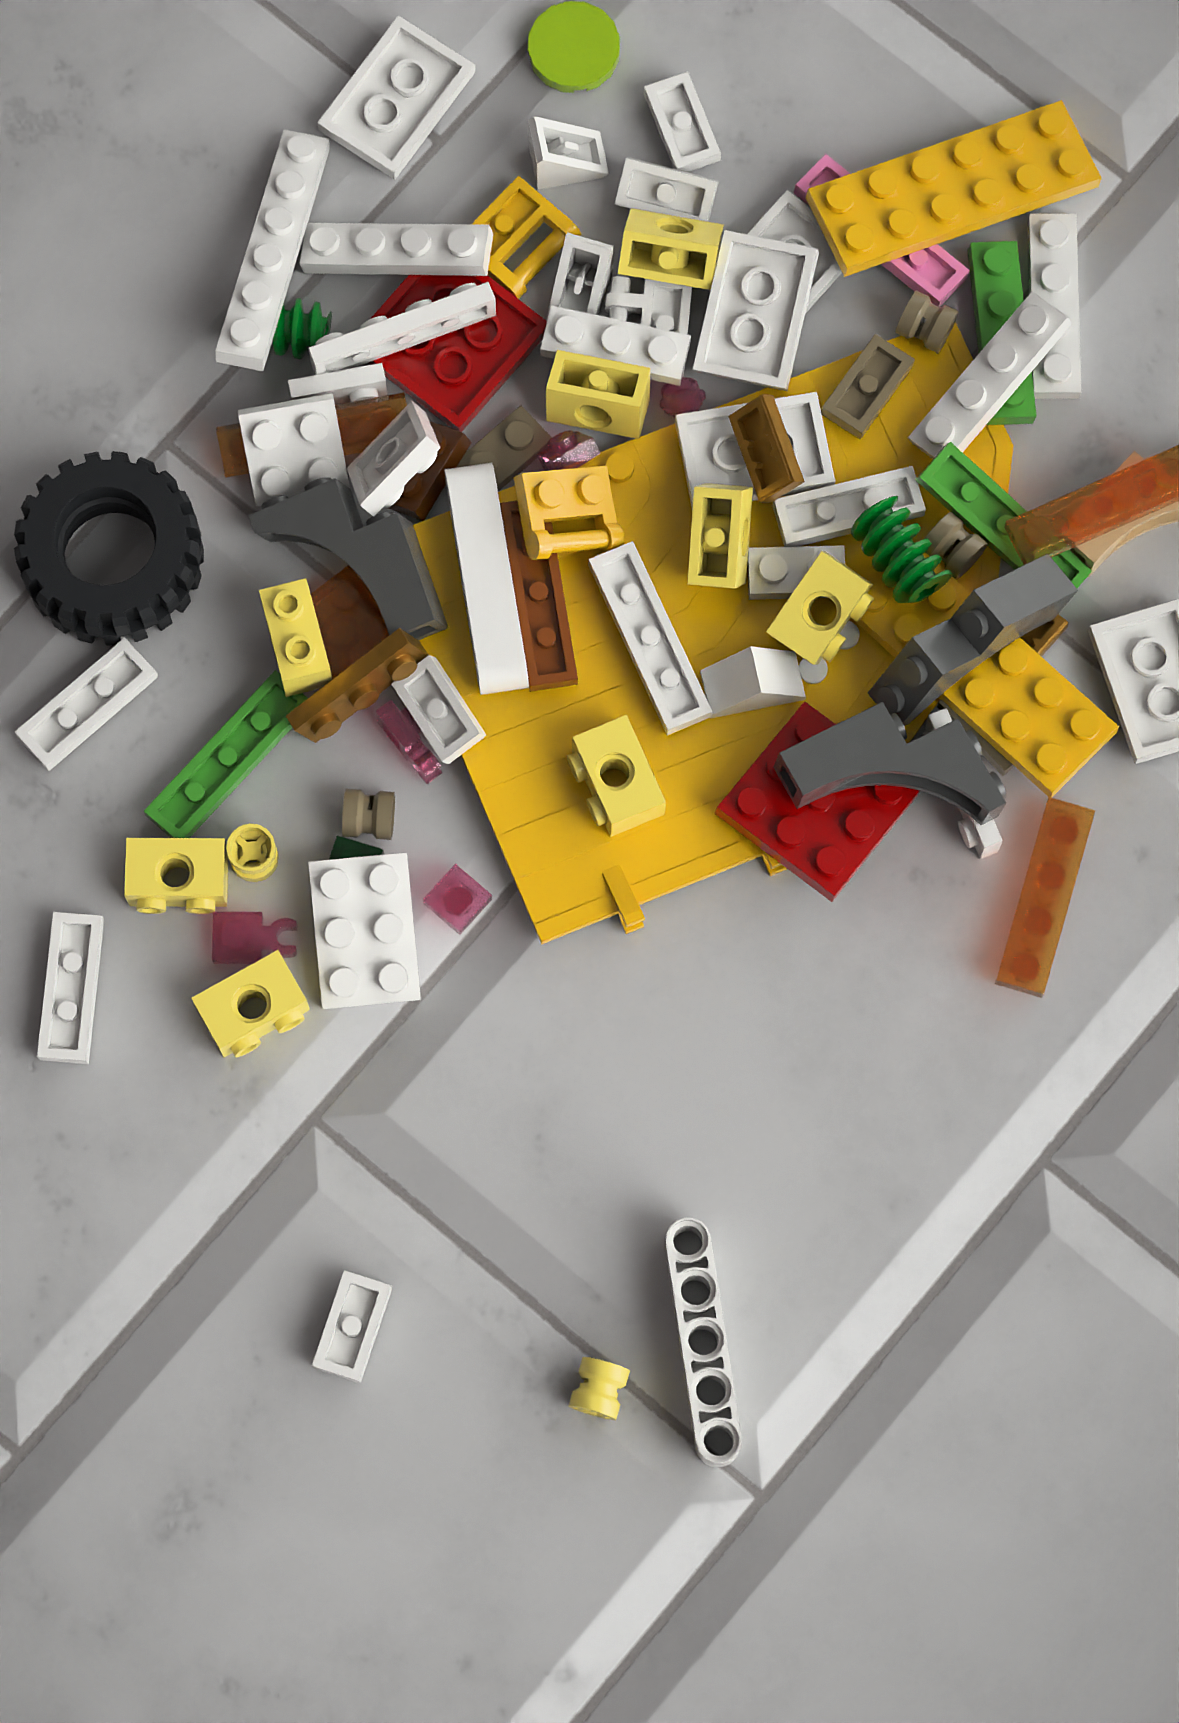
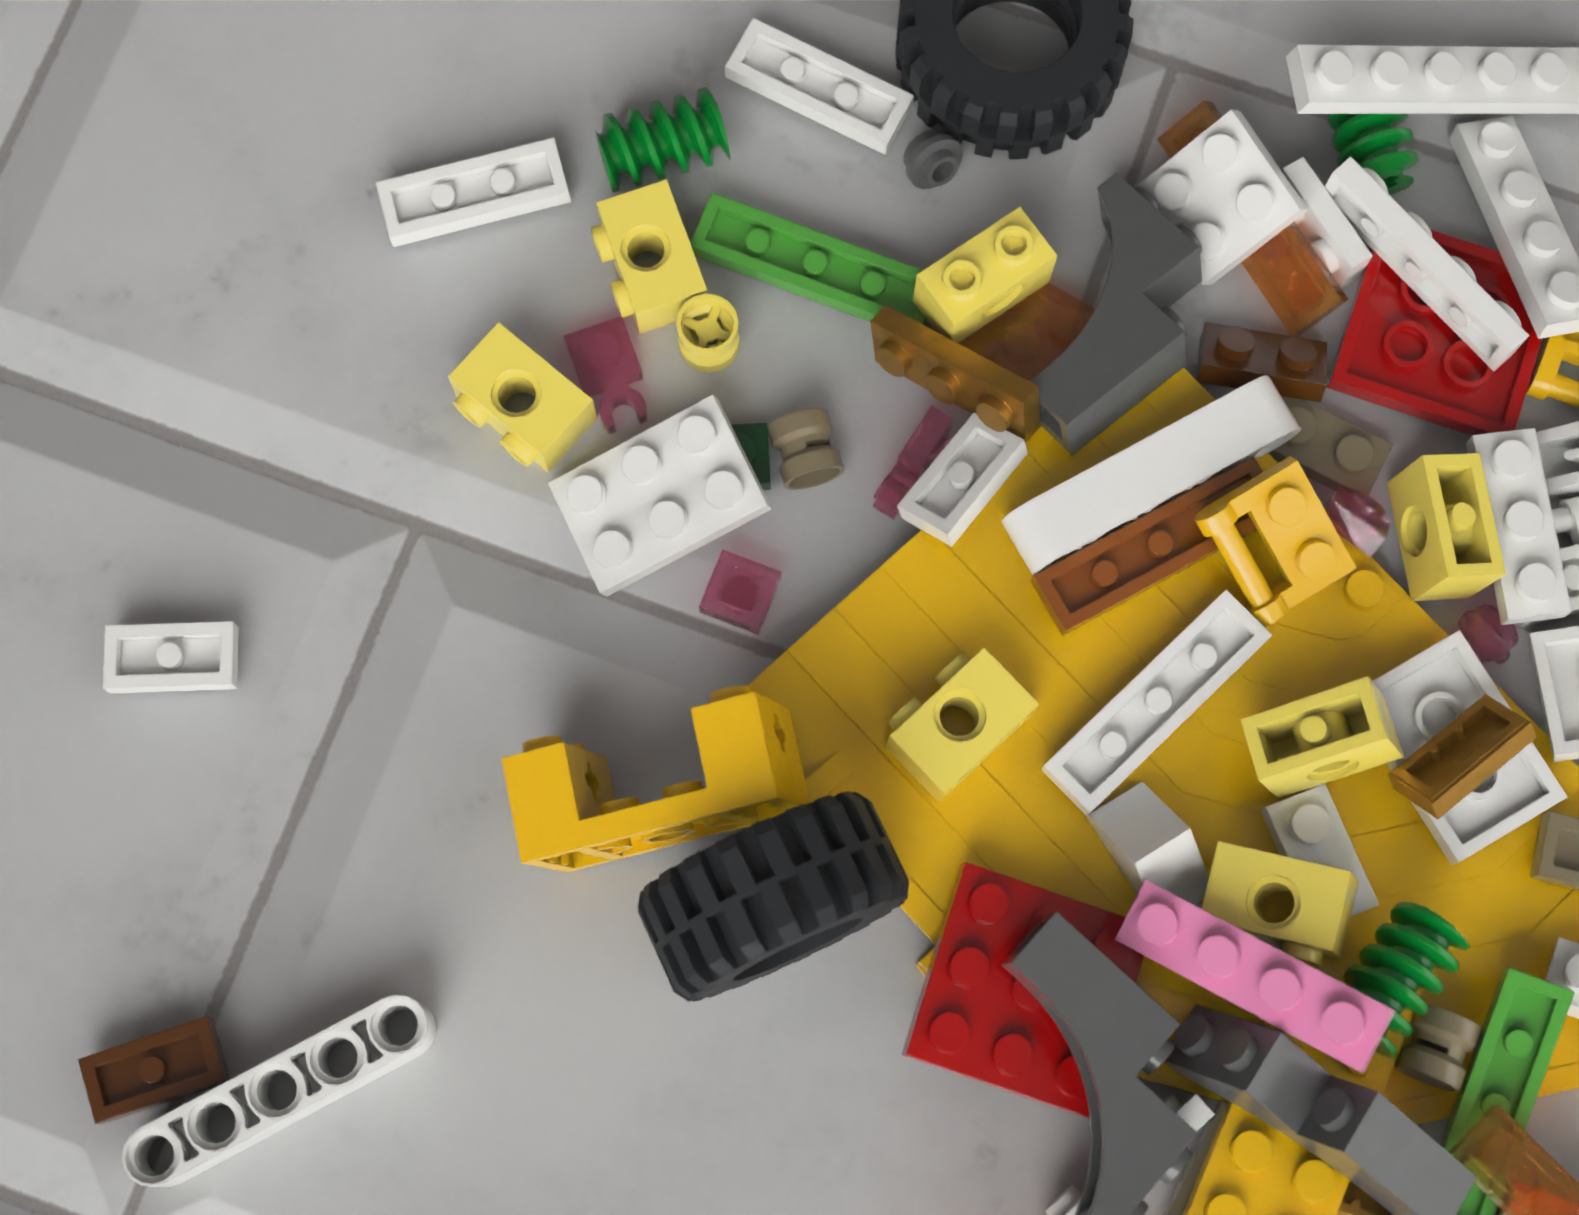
camera: 70 degrees right, 0 degrees up
(84, 832) = (661, 138): none -> green piece
(179, 643) = (932, 159): none -> dark grey plate
(393, 459) = (1263, 312): white plate -> none
(581, 1068) = (568, 804): none -> yellow plate
(598, 1391) = (175, 982): light yellow wheel -> none
(654, 1430) = (153, 1070): none -> reddish brown plate
(698, 940) = (772, 895): none -> black tyre
(834, 508) = (1420, 871): white plate -> none
(866, 642) = (1255, 976): none -> bright pink plate

